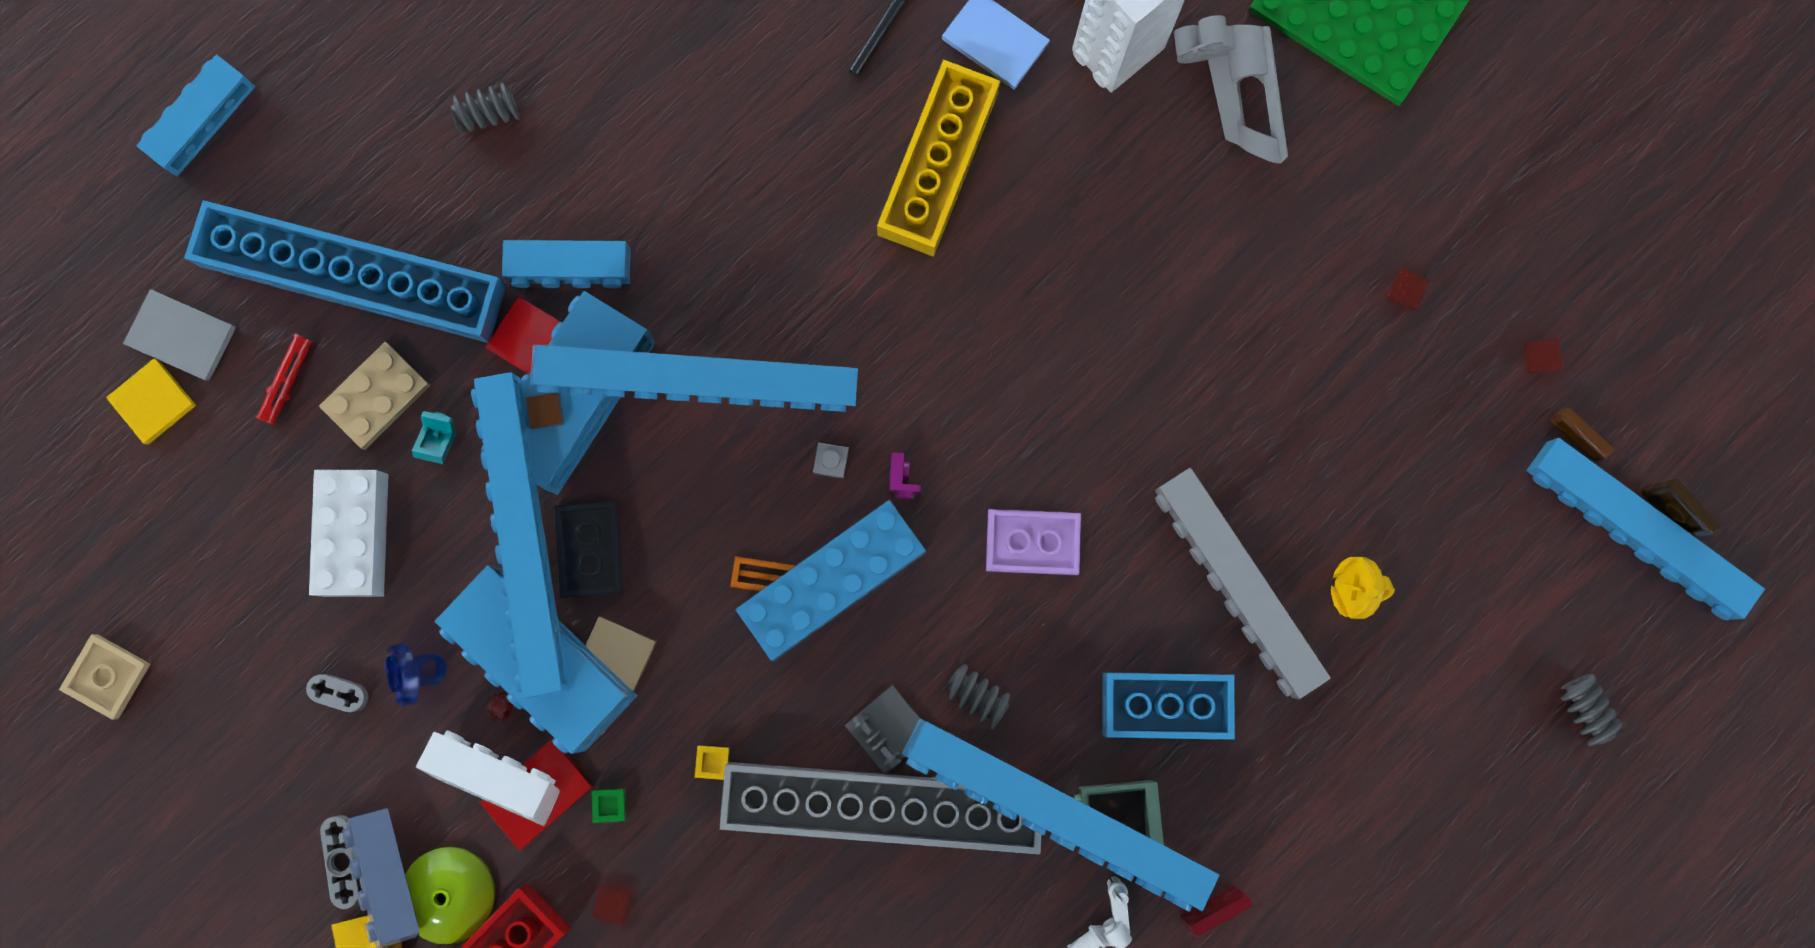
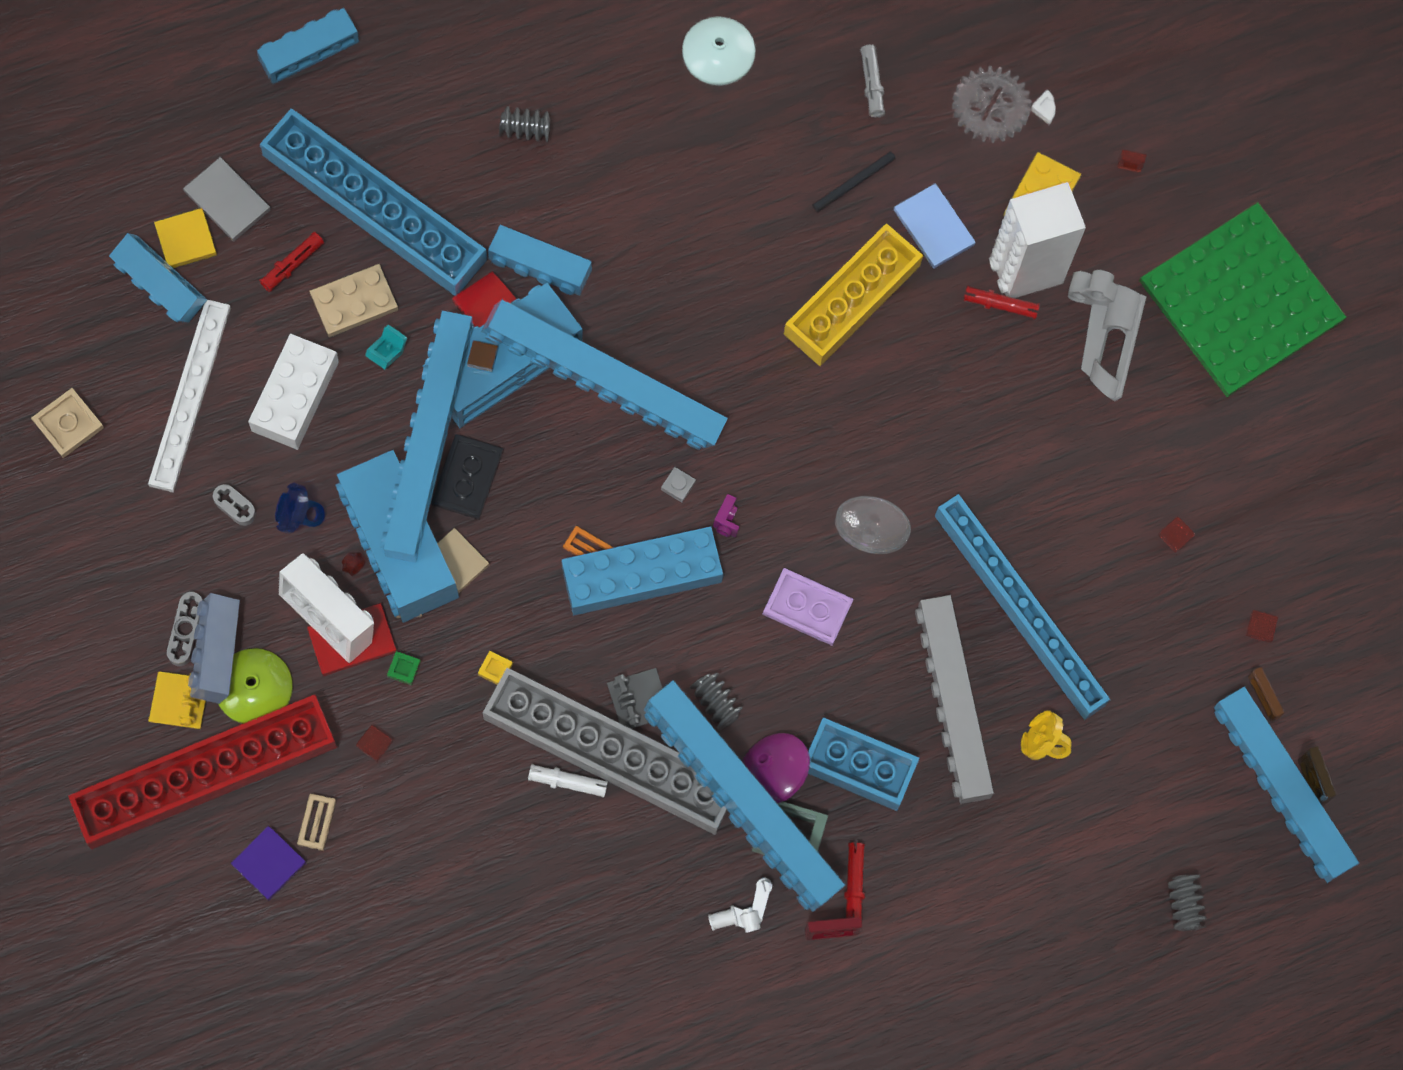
camera: 15 degrees right, 10 degrees down
(135, 463) = (157, 278): none -> dark azure brick
(233, 585) = (189, 396): none -> white tile
(846, 858) = (567, 780): none -> white pin
(1070, 421) = (872, 525): none -> clear dish
(1089, 749) = (779, 764): none -> magenta dish
(1107, 98) = (1001, 302): none -> red pin
(1215, 842) = (855, 881): none -> red pin
(1275, 447) = (1022, 607): none -> dark azure brick

